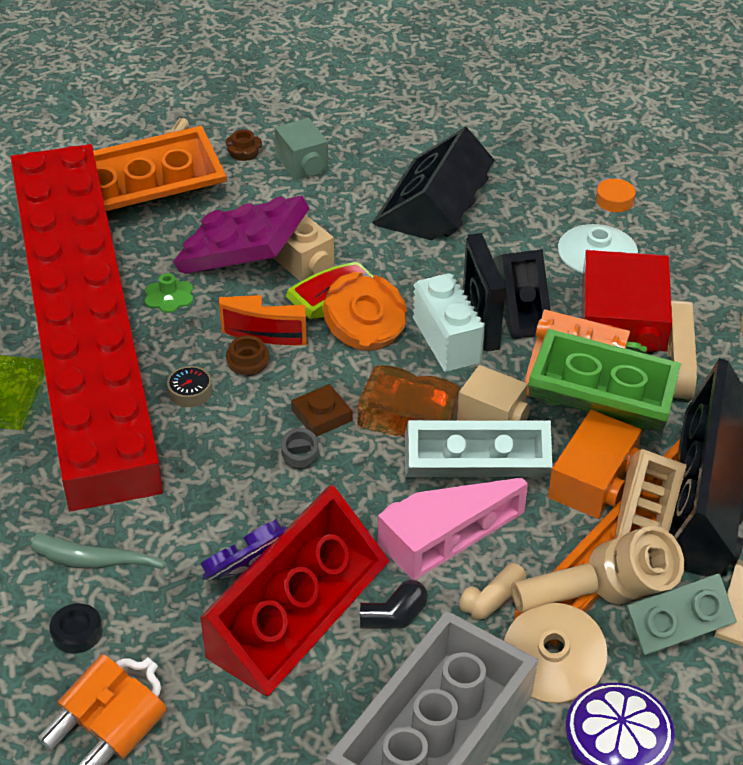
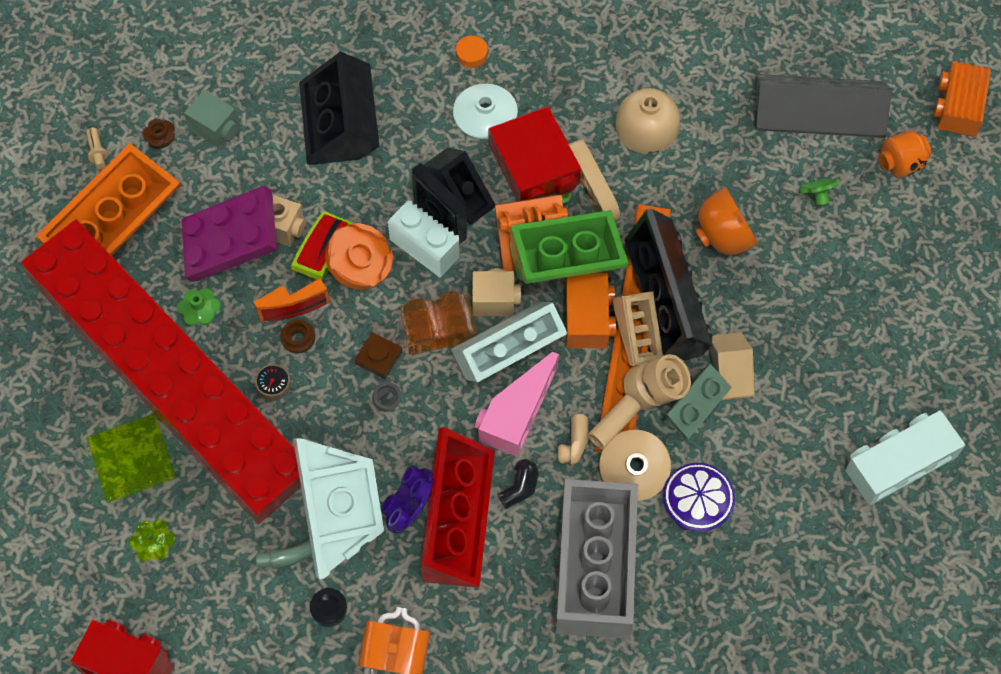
camera: 30 degrees left, 20 degrees up
(162, 518) = (338, 502): none -> light aqua wing

